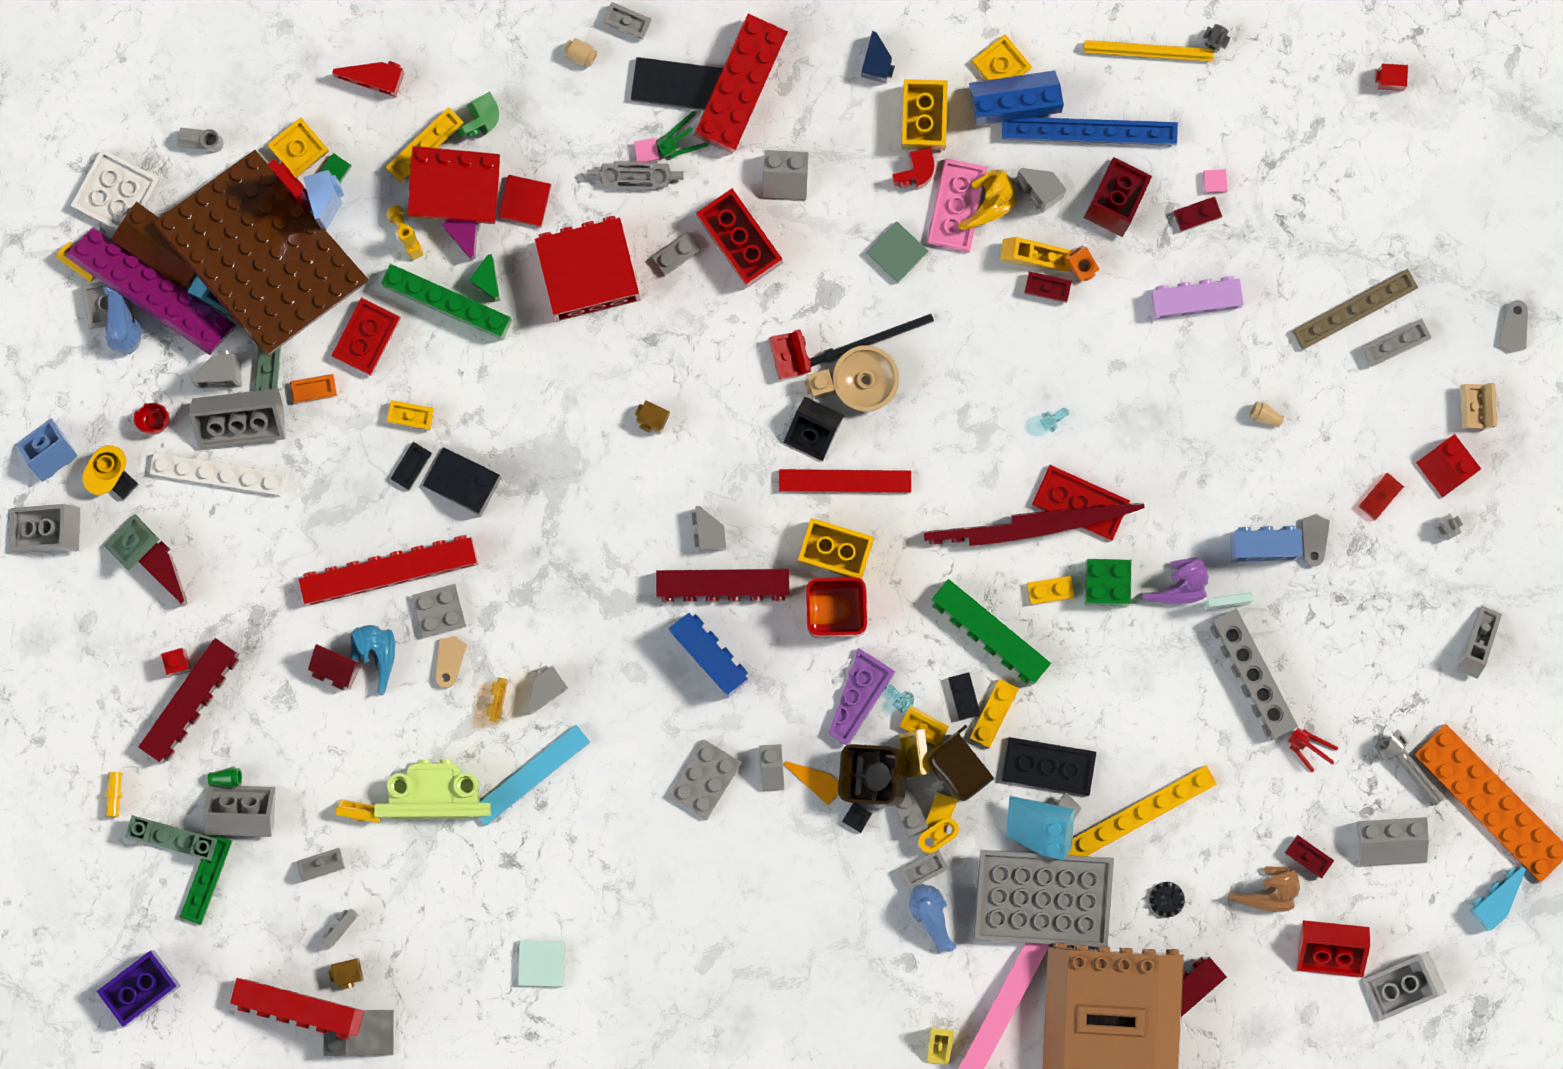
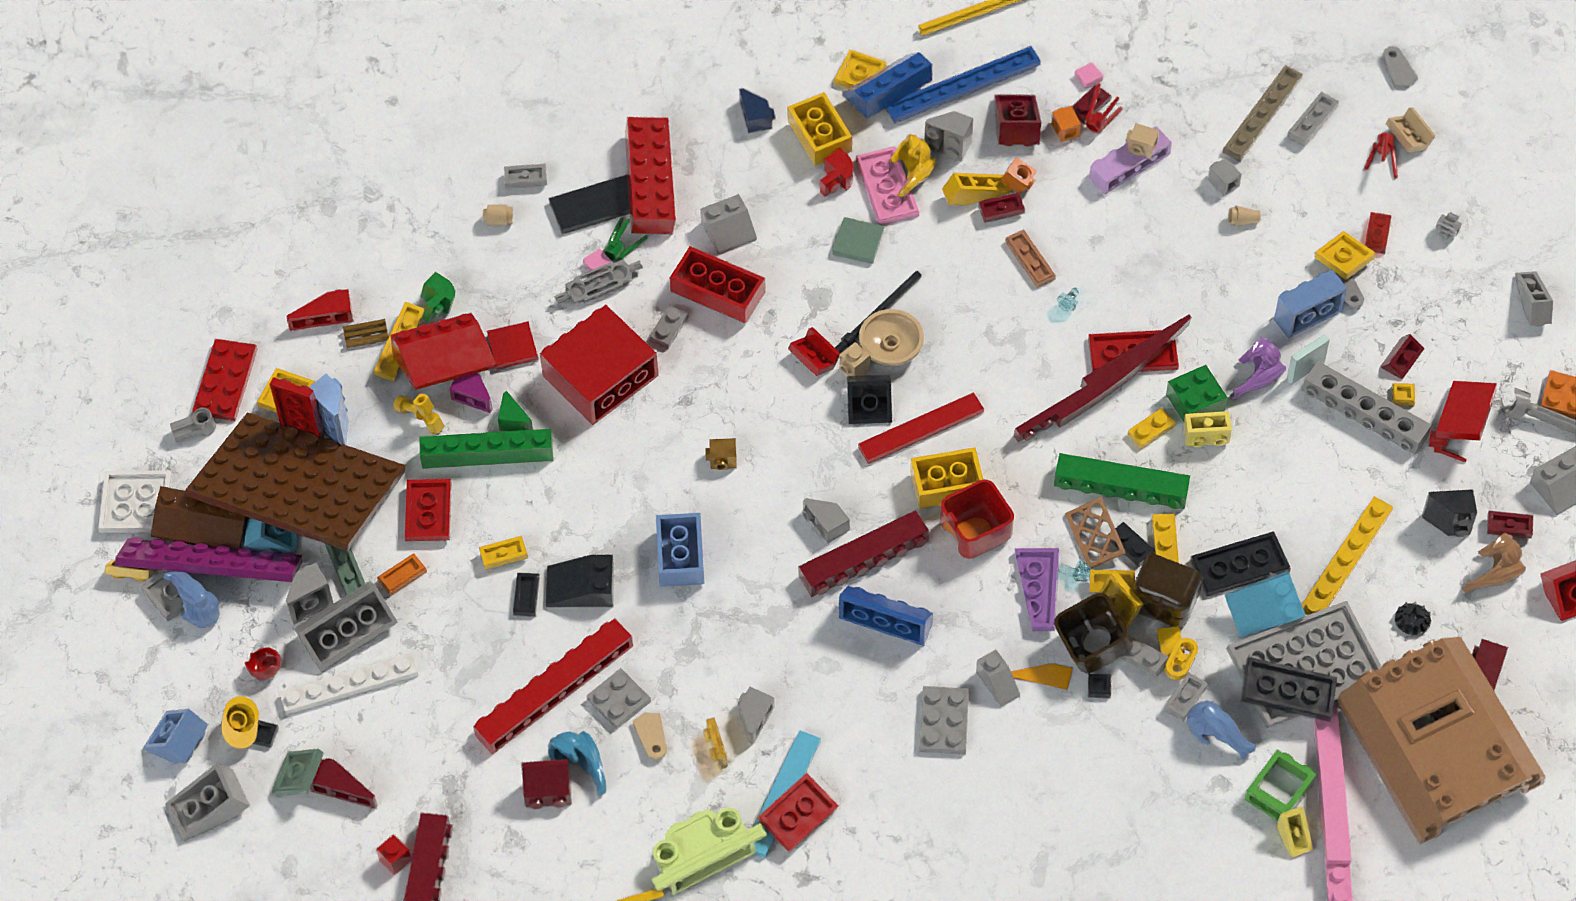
camera: 30 degrees left, 25 degrees down
(252, 102) = (225, 378): none -> red plate
(418, 123) = (365, 330): none -> pearl gold tile
(532, 803) = (797, 812): none -> red plate
(563, 497) = (679, 549): none -> medium blue brick
(925, 656) = (1113, 536): none -> medium nougat window
(933, 1006) = (1270, 804): none -> bright green window
(1010, 916) = (1289, 689): none -> black tile
(1044, 354) = (1030, 258): none -> nougat tile
(1096, 623) = (1207, 429): none -> light yellow brick
(1160, 226) = (1066, 124): none -> orange brick
(1190, 240) = (1097, 121): none -> red plant
(1212, 293) = (1142, 140): none -> tan brick
(1262, 823) = (1451, 511): none -> black slope
(1273, 362) = (1224, 176): none -> light grey brick
(1298, 675) = (1403, 394): none -> yellow tile
(1322, 637) = (1402, 356): none -> dark red slope
(1333, 507) = (1344, 255): none -> yellow plate
(1338, 730) = (1466, 410): none -> red tile
(1445, 407) = (1384, 146): none -> red plant
(1448, 465) = (1417, 182): red slope -> none

